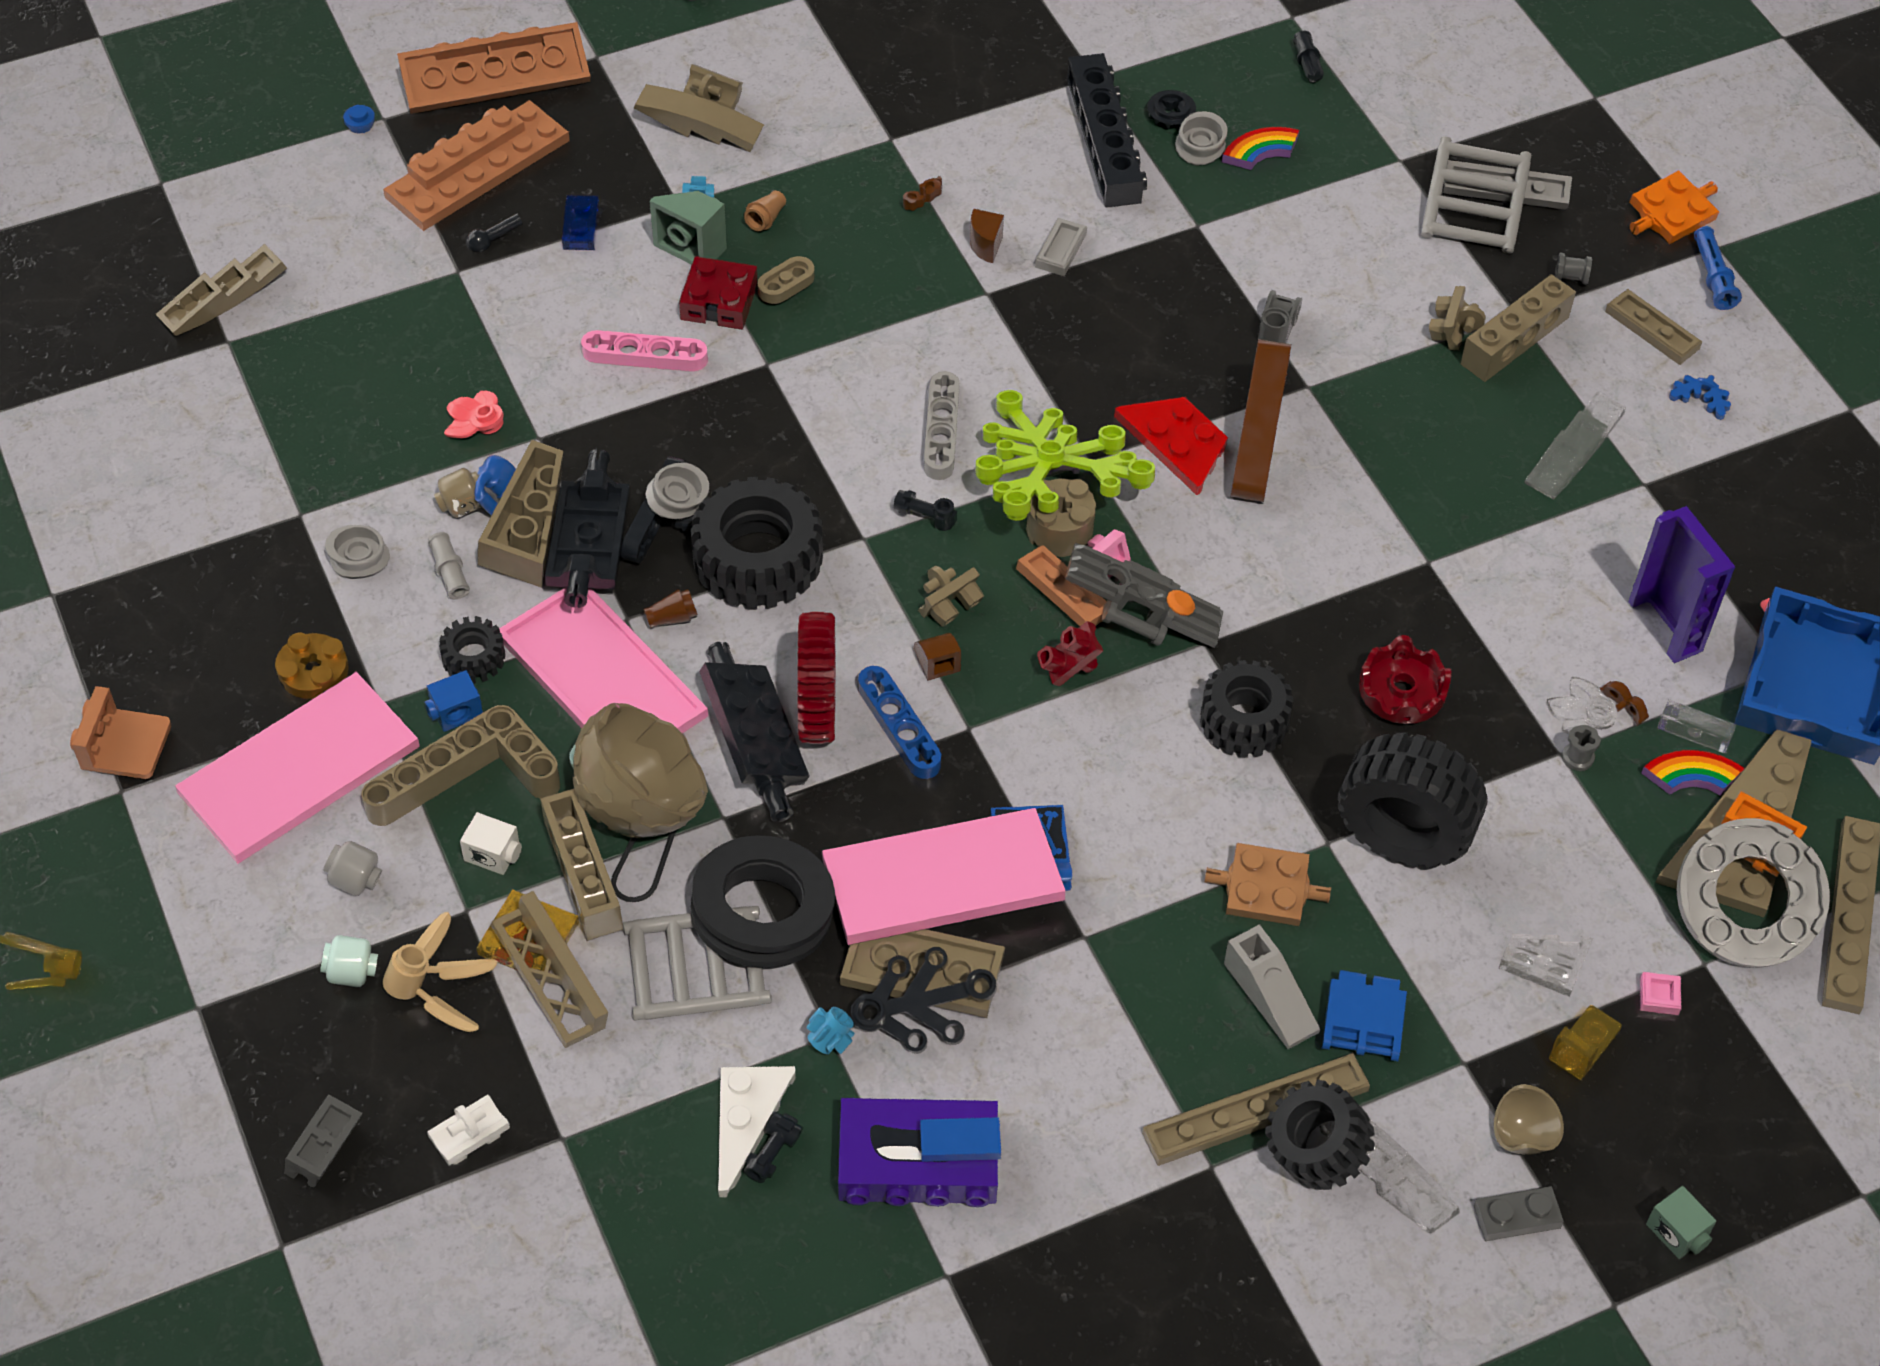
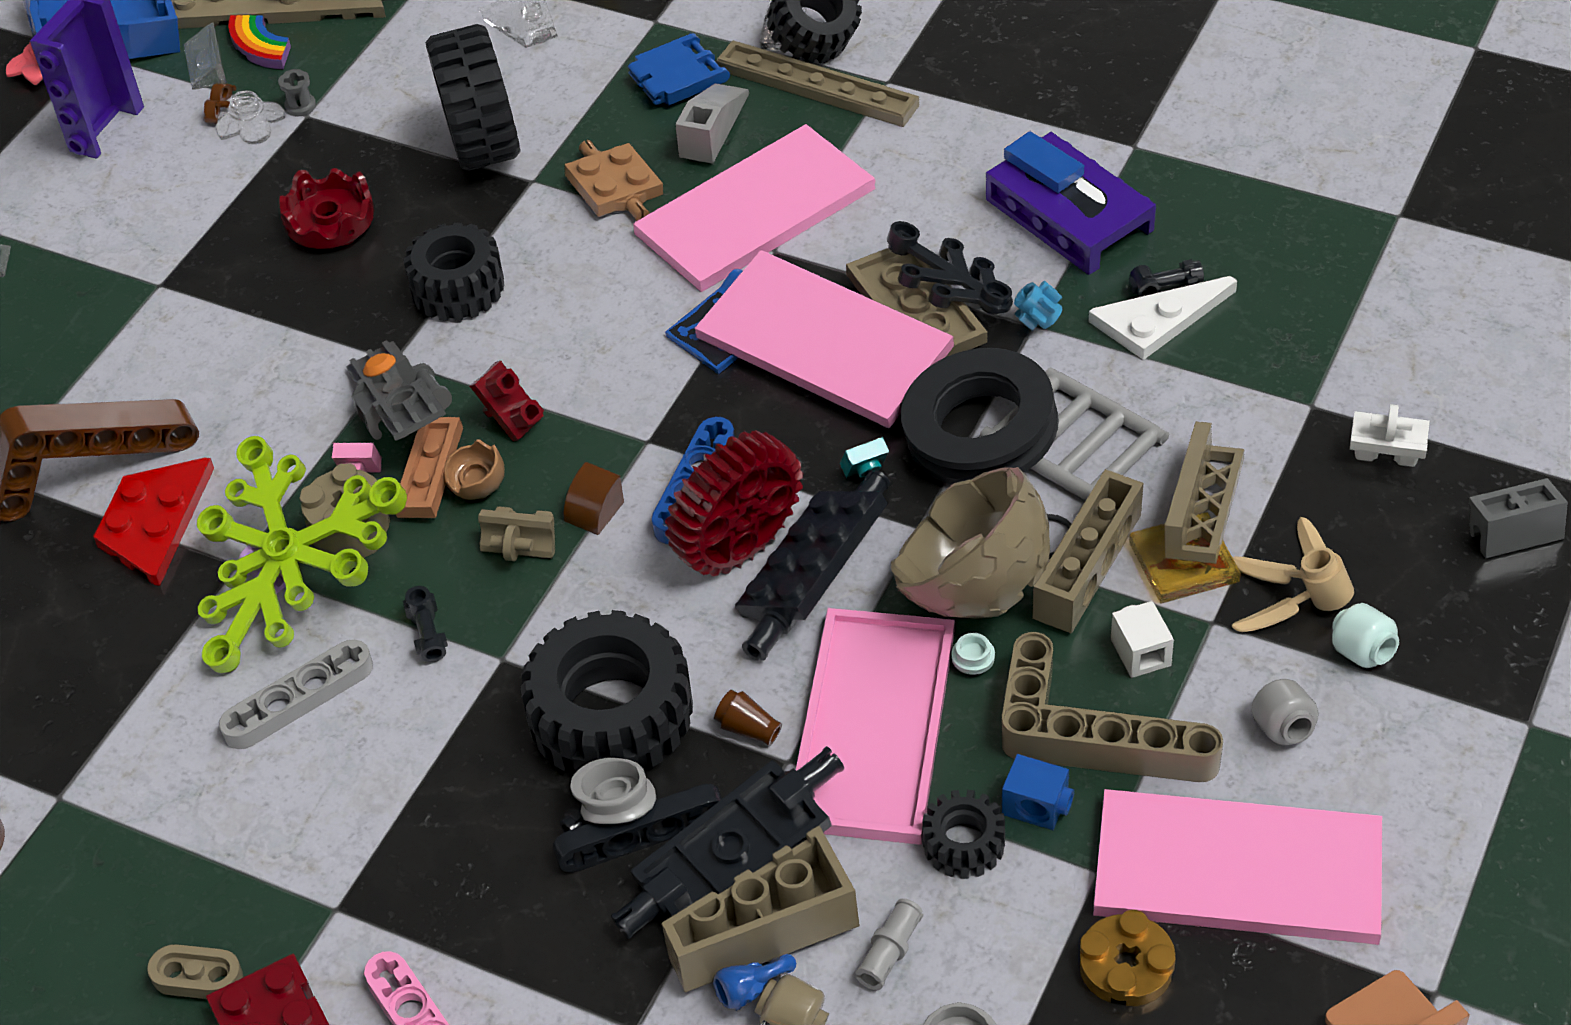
camera: 125 degrees left, 5 degrees down
(805, 816) = (864, 458): none -> plate
(1029, 604) = (474, 471): none -> medium nougat hair
(1144, 957) = (753, 207): none -> bright pink tile

